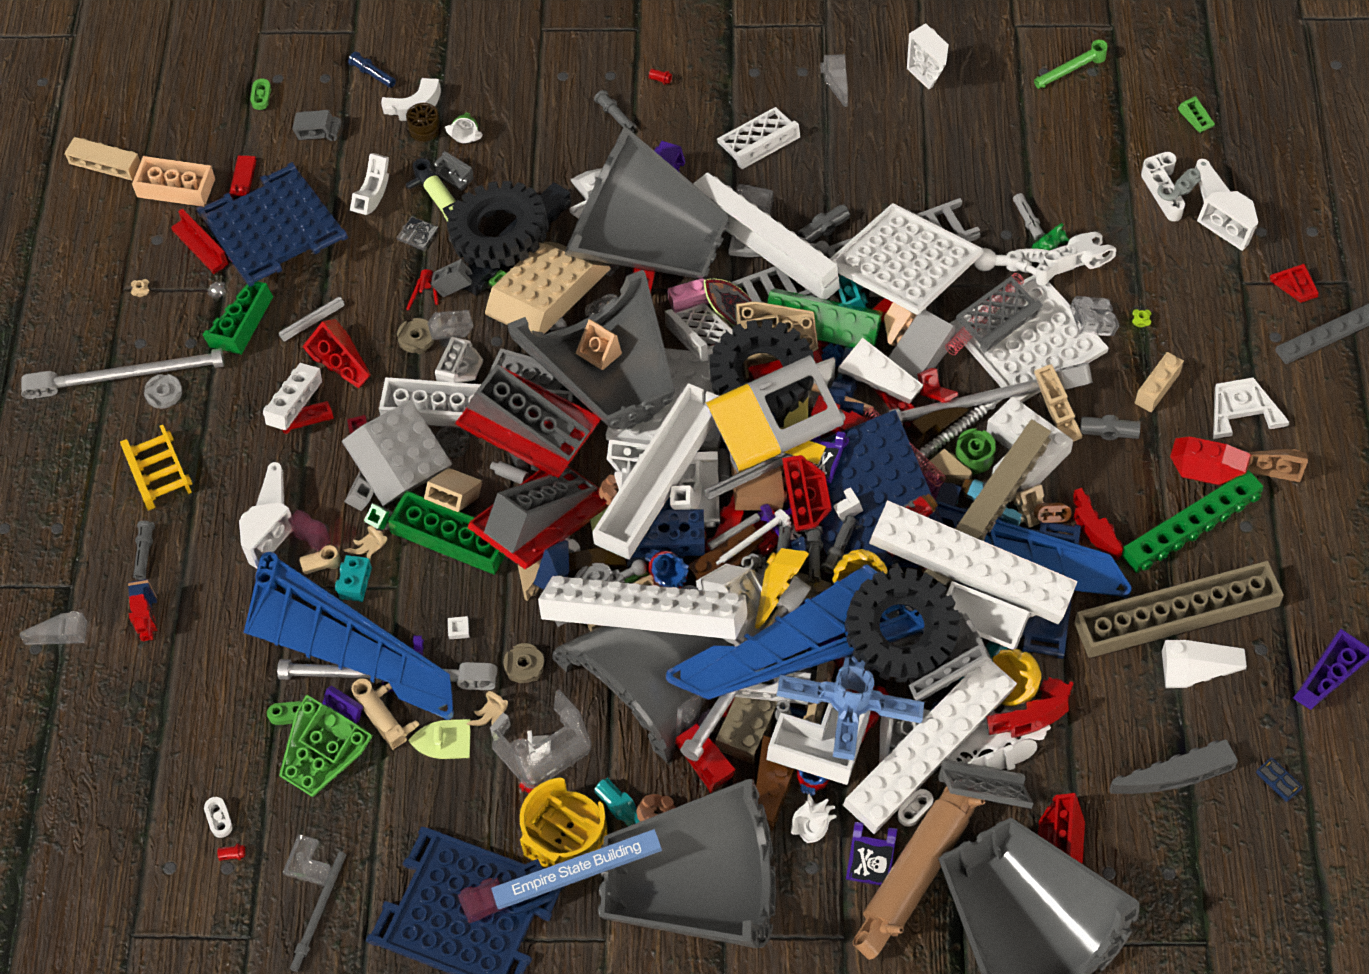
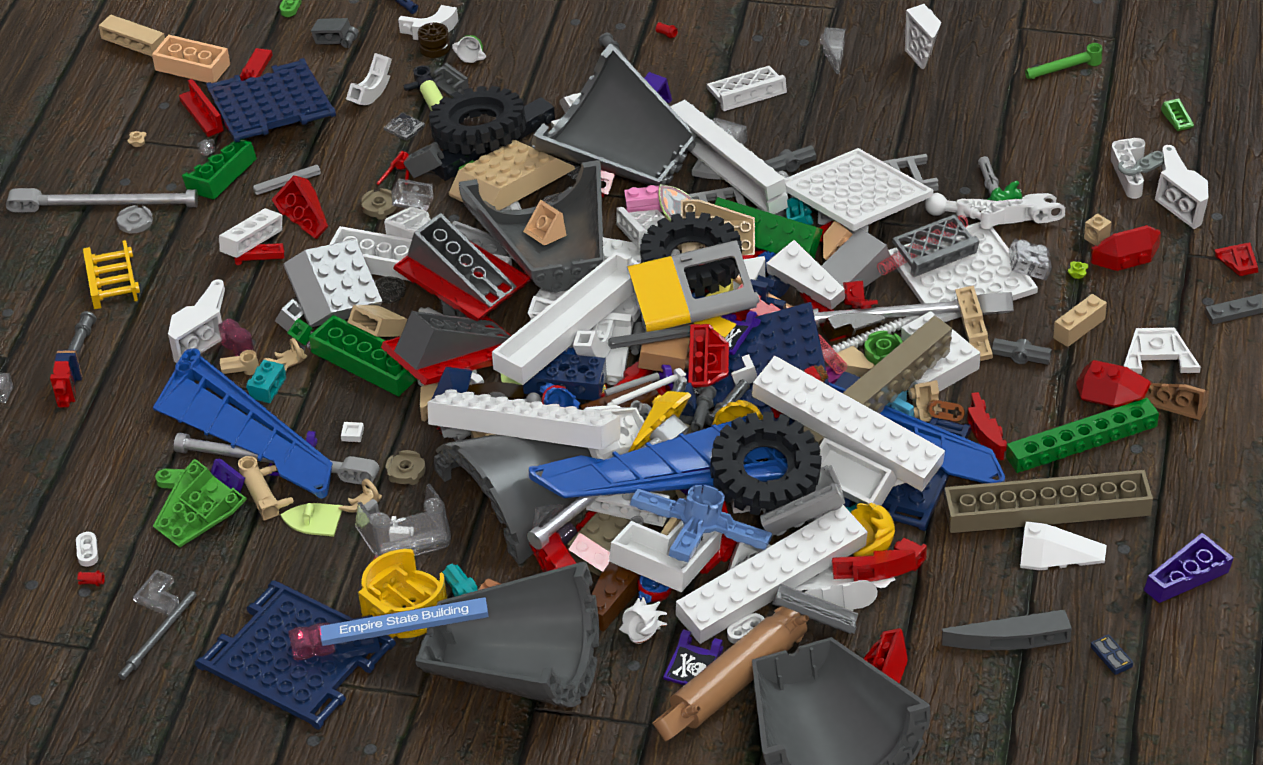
camera: 10 degrees right, 15 degrees down
(743, 750) = (590, 552): none -> bracket
(1151, 269) = (1097, 229): none -> tan brick
(1186, 290) = (1127, 248): none -> red wedge

